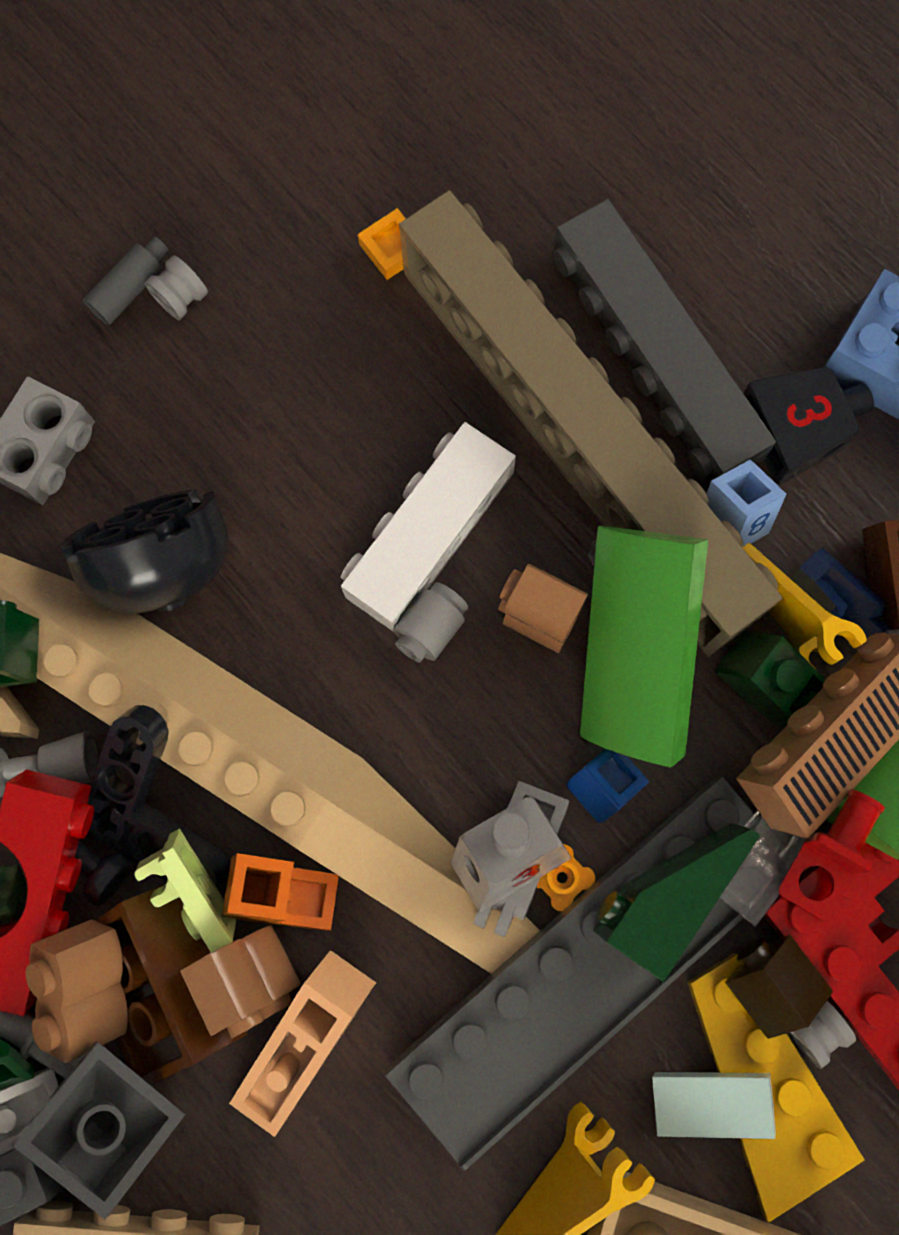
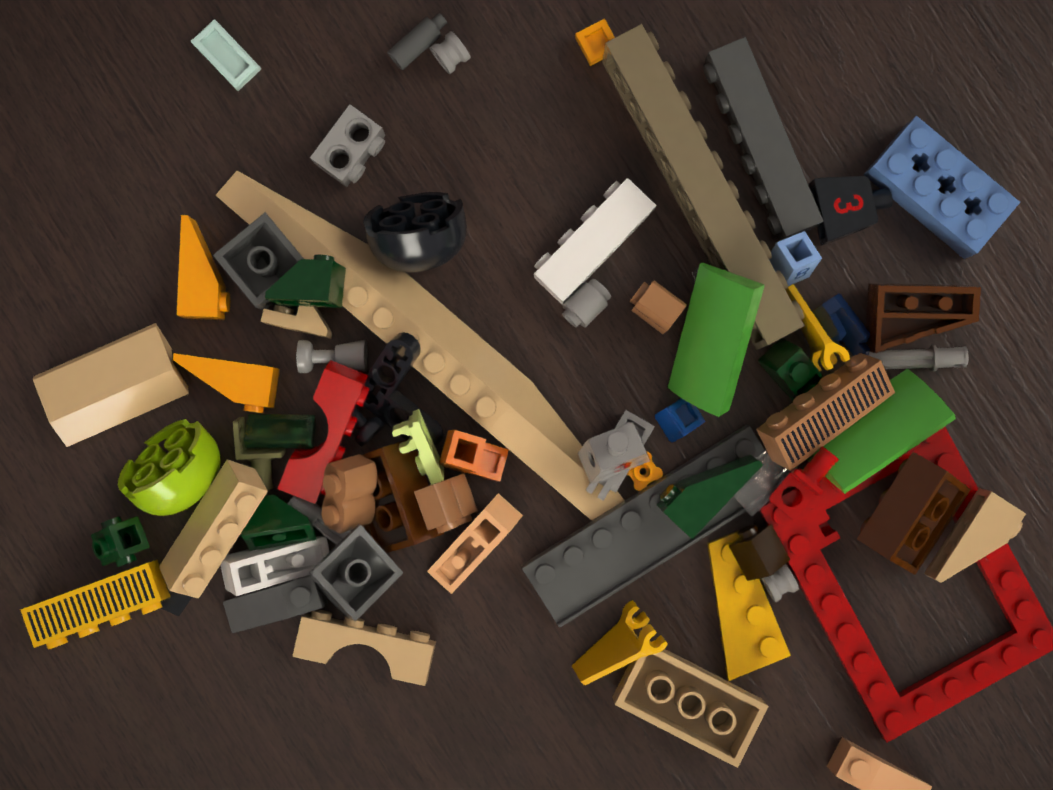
camera: 10 degrees right, 10 degrees up
(714, 1105) = (709, 612): light aqua tile -> none

